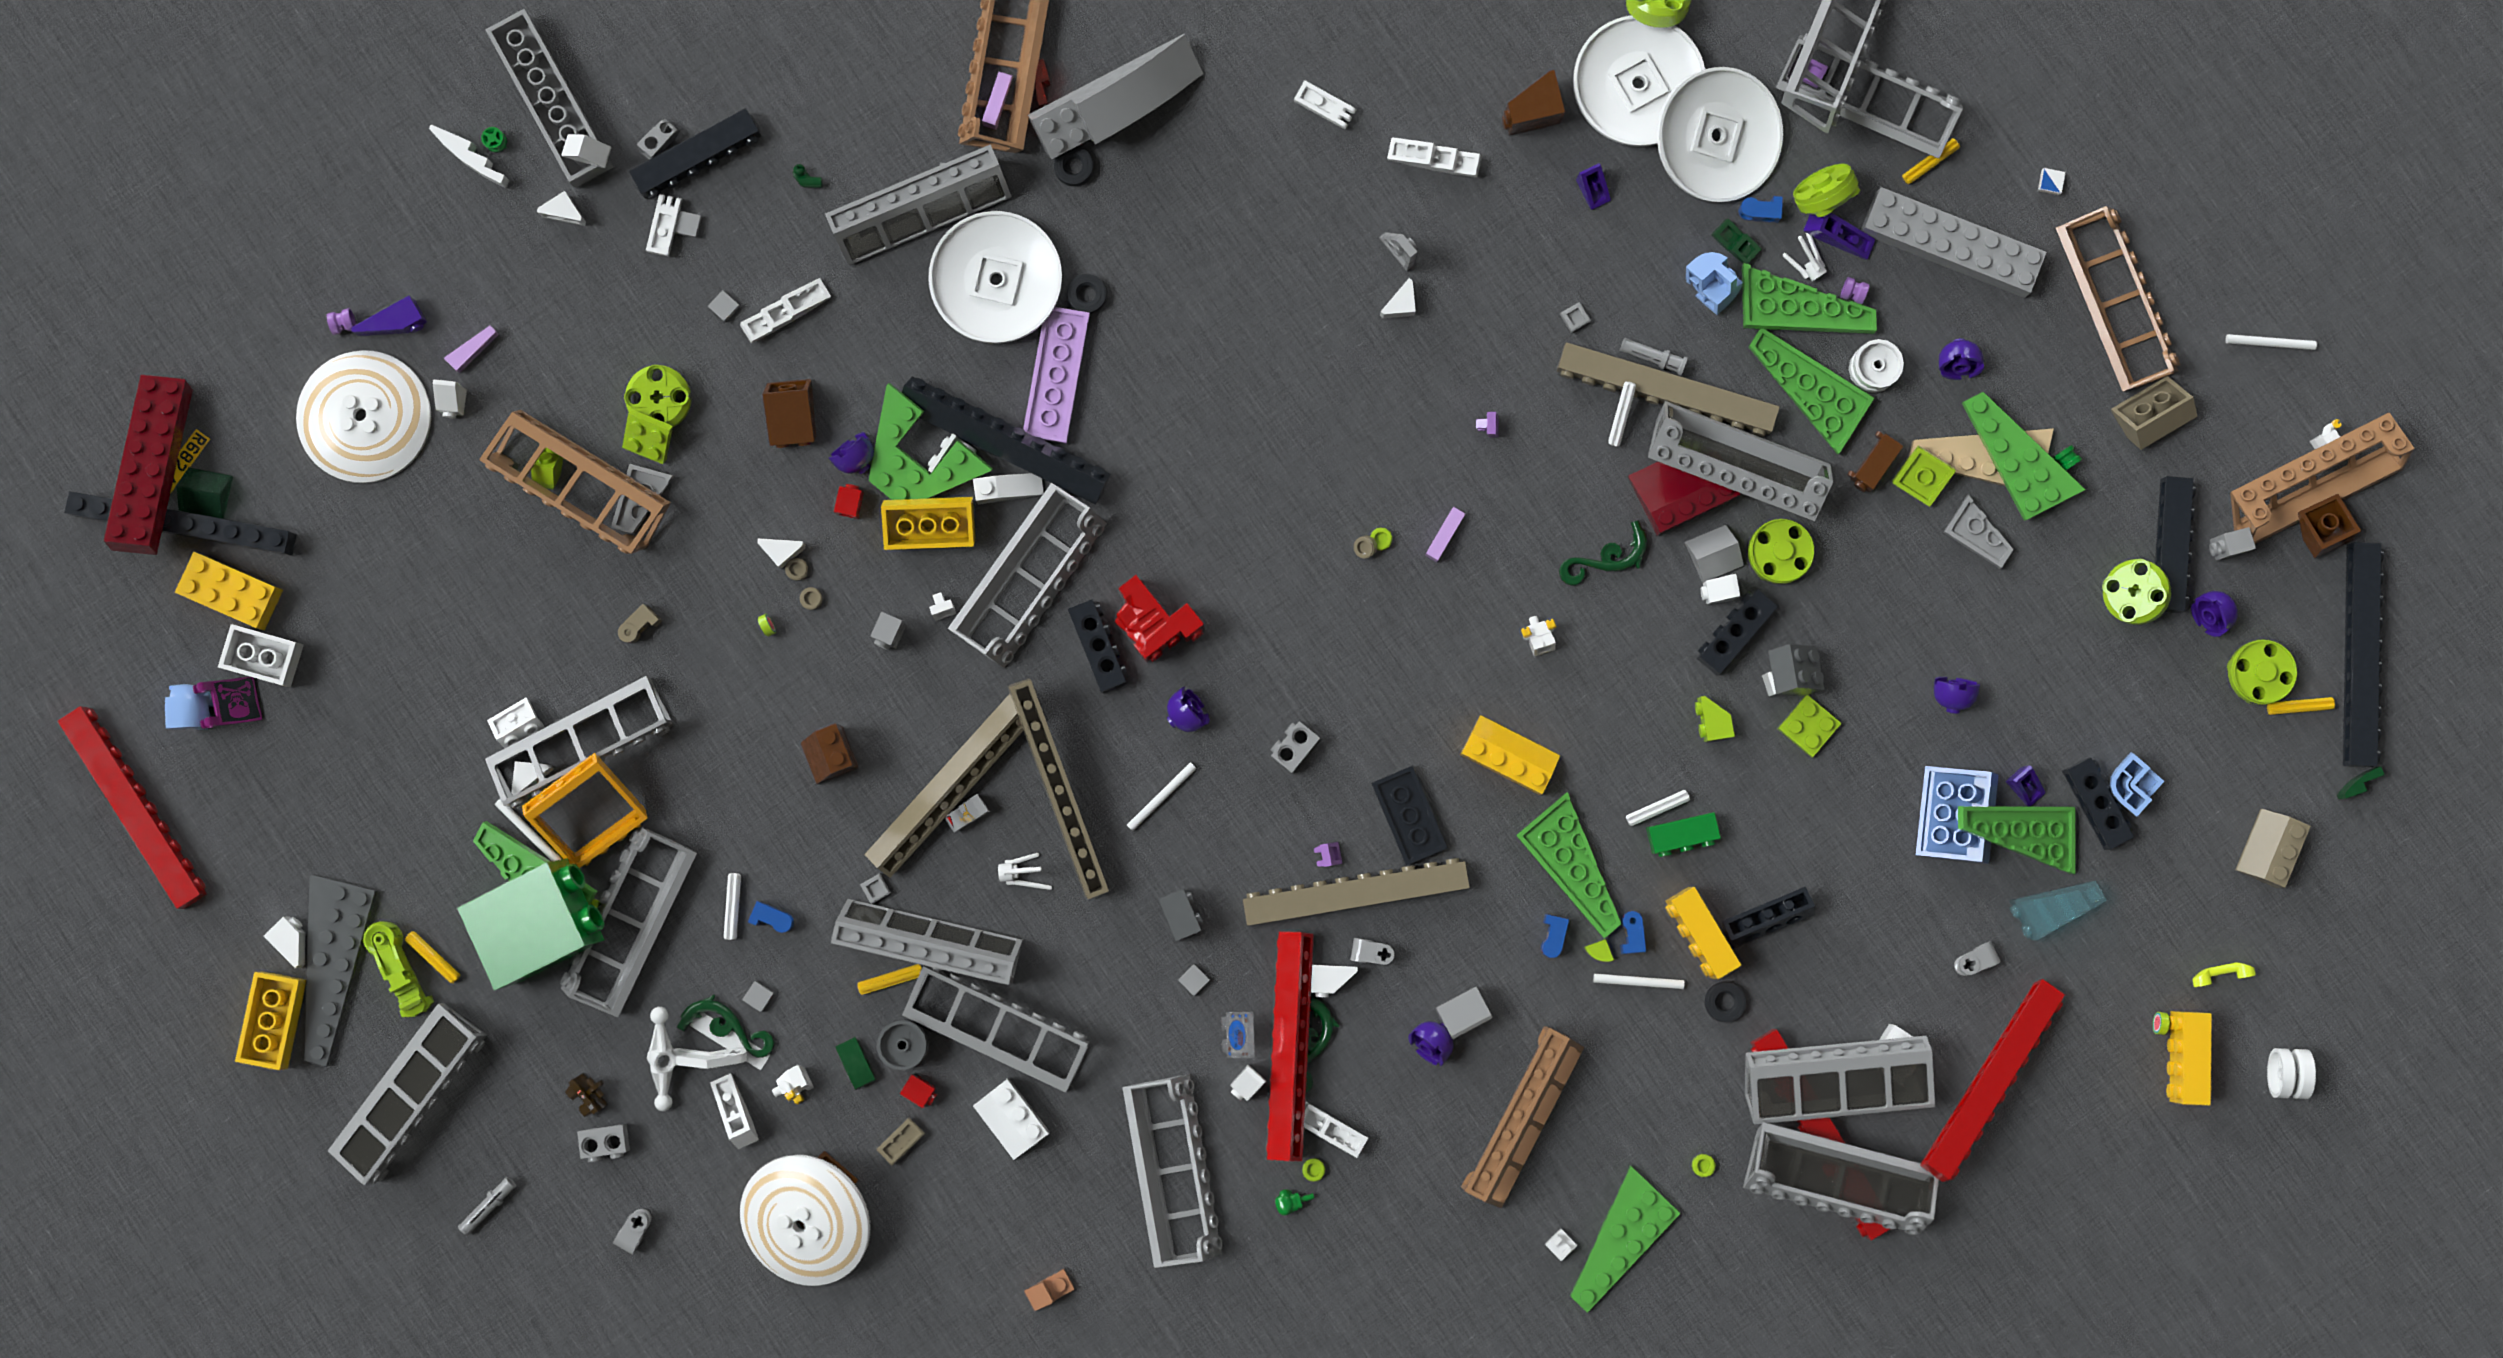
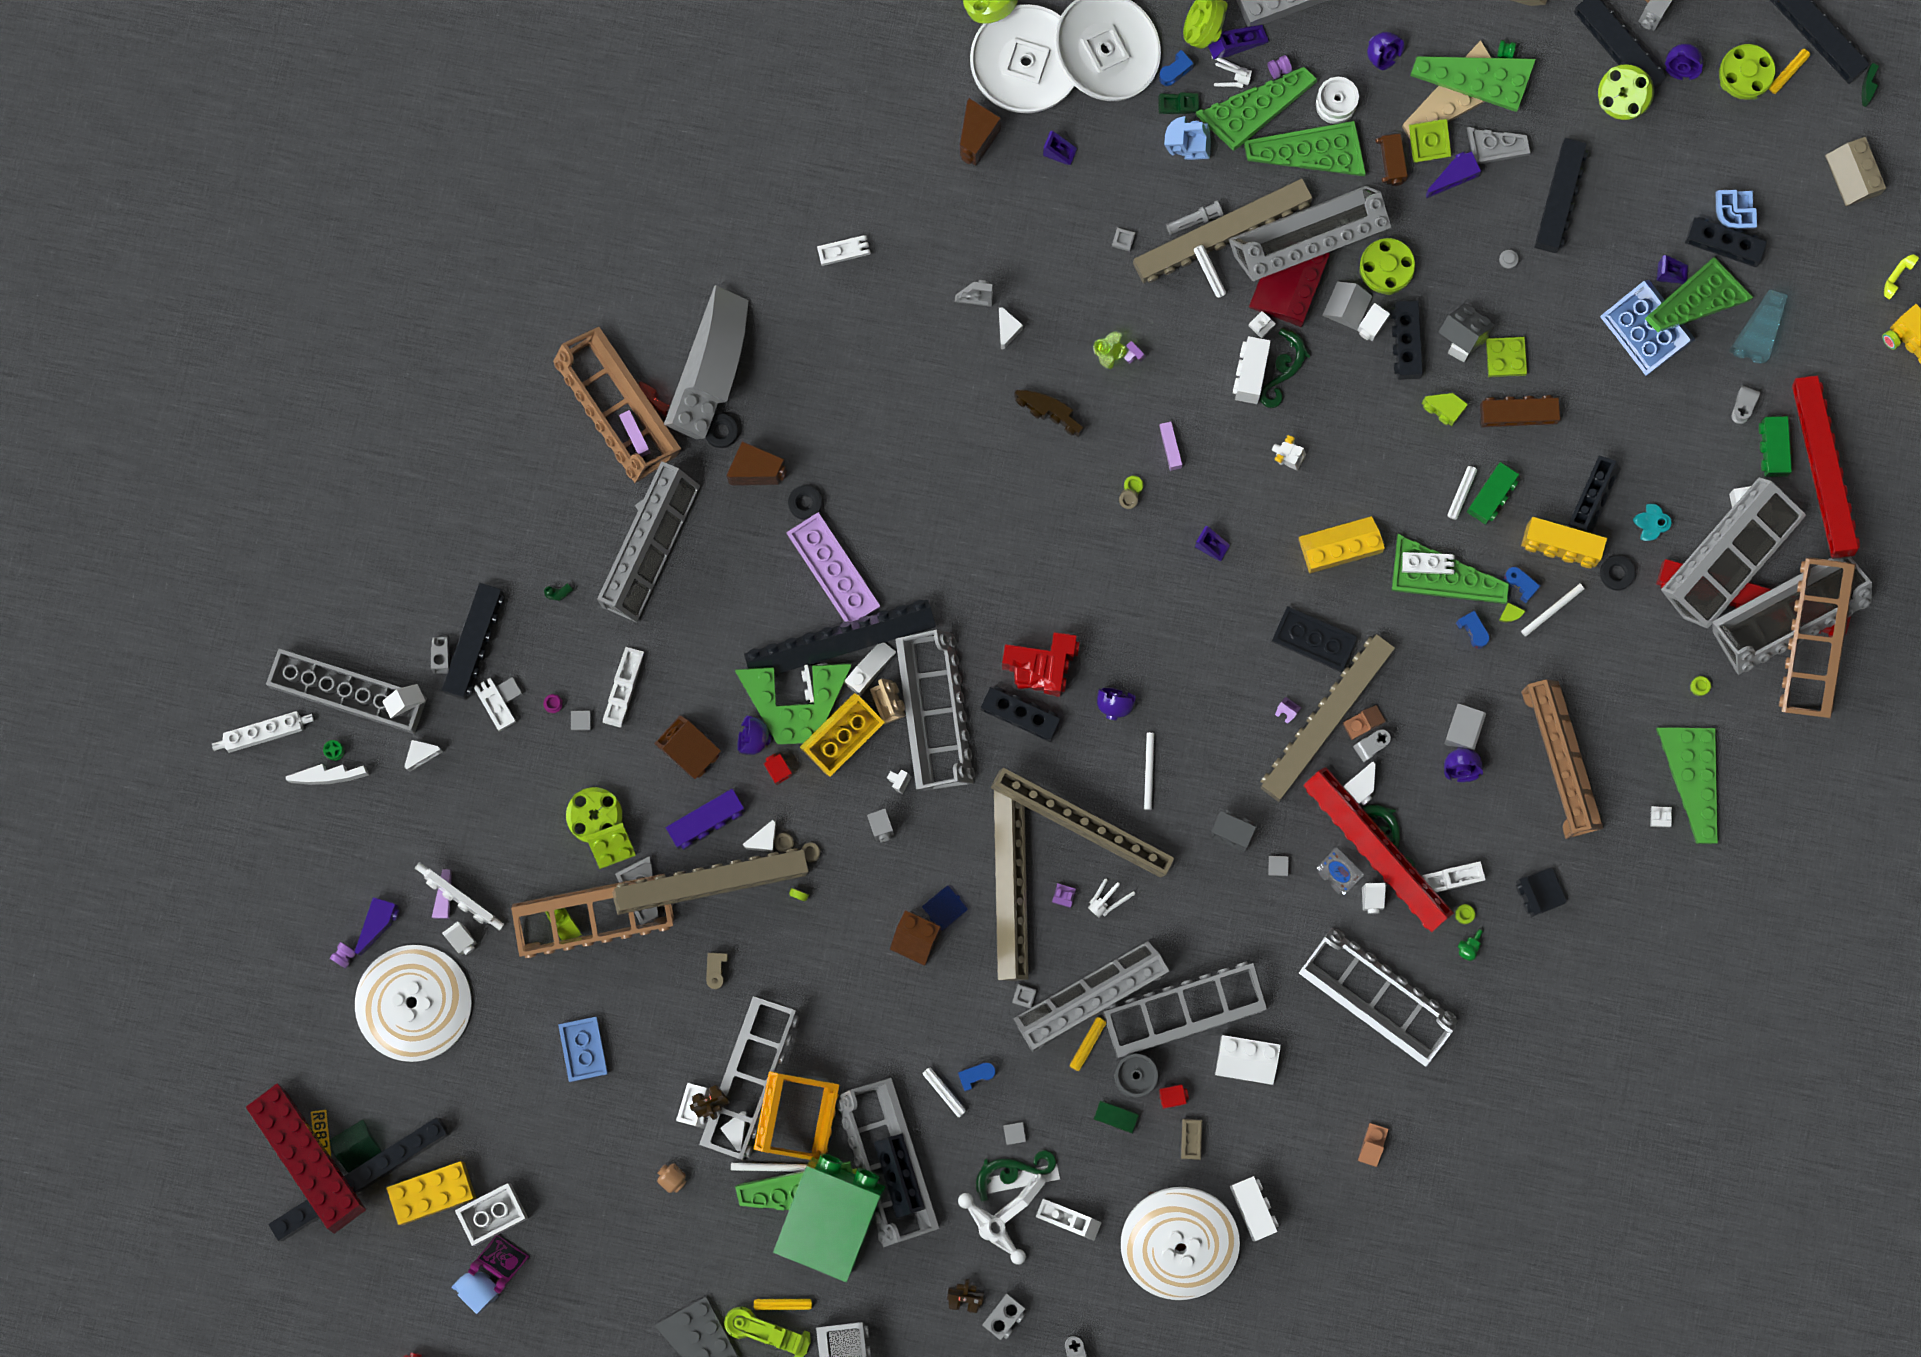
camera: 35 degrees left, 5 degrees down
(438, 765) = (671, 1178): none -> medium nougat head
(450, 68) = (262, 732): none -> white plate
(466, 587) = (583, 1049): none -> medium blue plate
(480, 371) = (451, 892): none -> white plate
(522, 735) = (709, 1105): none -> dark brown hips
(626, 942) = (899, 1175): none -> black brick
(697, 545) = (710, 881): none -> dark tan brick
(714, 270) = (553, 703): none -> magenta plate
(748, 487) = (704, 819): none -> dark purple brick
(792, 1084) = (1089, 1167): white piece -> none
(879, 751) = (944, 908): none -> clear blue piece
(895, 1250) = (1254, 1208): none -> white brick
(967, 813) = (1037, 894): light grey leg -> none
(989, 246) = (733, 517): white dish -> none
(989, 834) = (1063, 895): none -> medium lavender tile
(995, 530) = (888, 701): none -> tan bracket
(1070, 224) = (755, 467): none -> reddish brown slope
(1299, 750) = (1207, 662): light grey brick -> none
(1368, 399) = (1044, 405): none -> dark brown slope
(1384, 926) = (1364, 722): none -> nougat slope
(1395, 1212) = (1540, 892): none -> black bracket
(1399, 652) = (1211, 544): none -> dark purple slope
(1434, 157) = (942, 221): white slope -> none
(1471, 405) = (1112, 349): none -> clear neon green plate
(1567, 841) = (1427, 563): none -> white hinge
(1575, 533) = (1251, 369): none -> white brick
(1624, 502) = (1261, 324): none -> white tile
(1775, 785) = (1520, 411): none -> reddish brown brick
(1795, 984) = (1649, 522): none -> teal plate
(1853, 1241) = (1837, 640): none -> medium nougat window
(1893, 643) = (1508, 259): none -> light grey plate
(1923, 526) = (1459, 171): none -> dark purple slope
(1955, 694) = (1576, 254): dark purple cylinder -> none
(1968, 1021) = (1775, 446): none -> green brick
(1992, 629) = (1560, 195): none -> black brick

